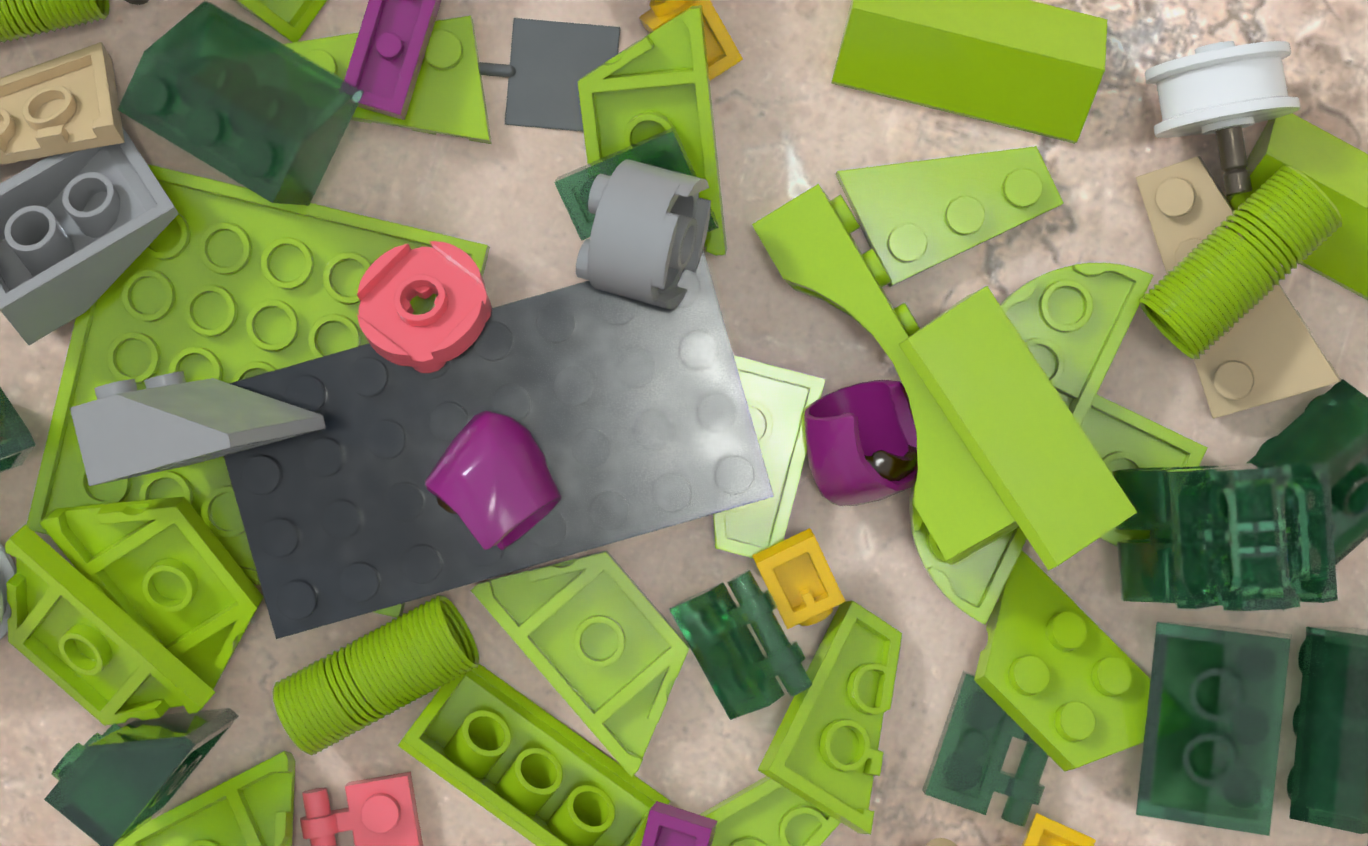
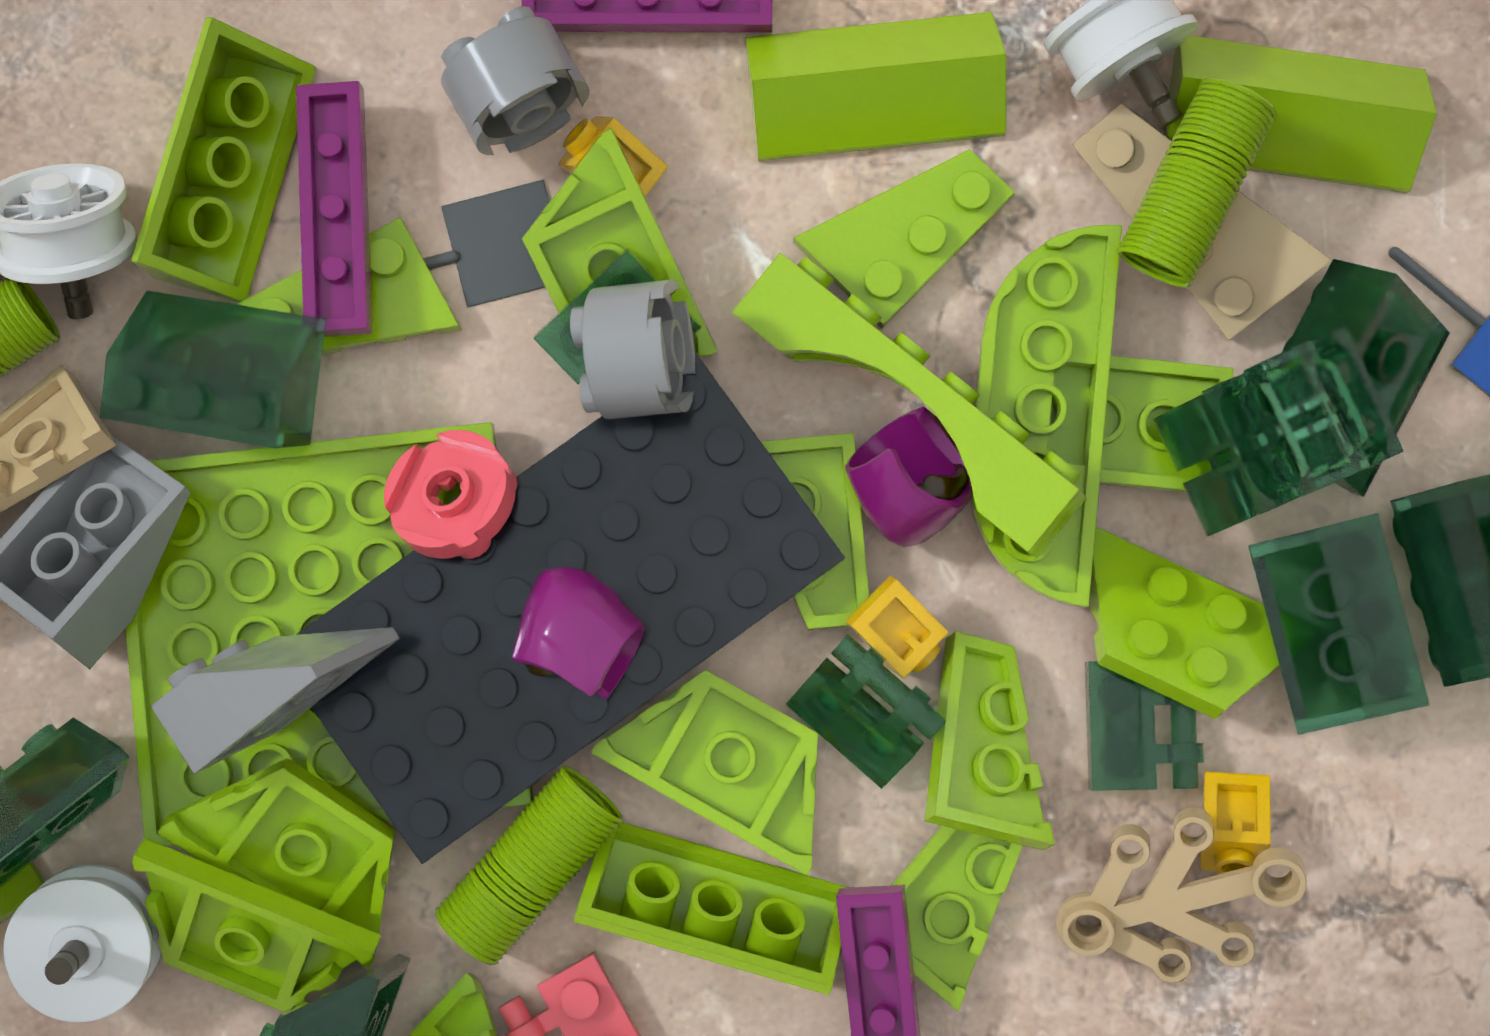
camera: 20 degrees left, 5 degrees down
(1017, 427) = (1048, 403): lime slope -> none

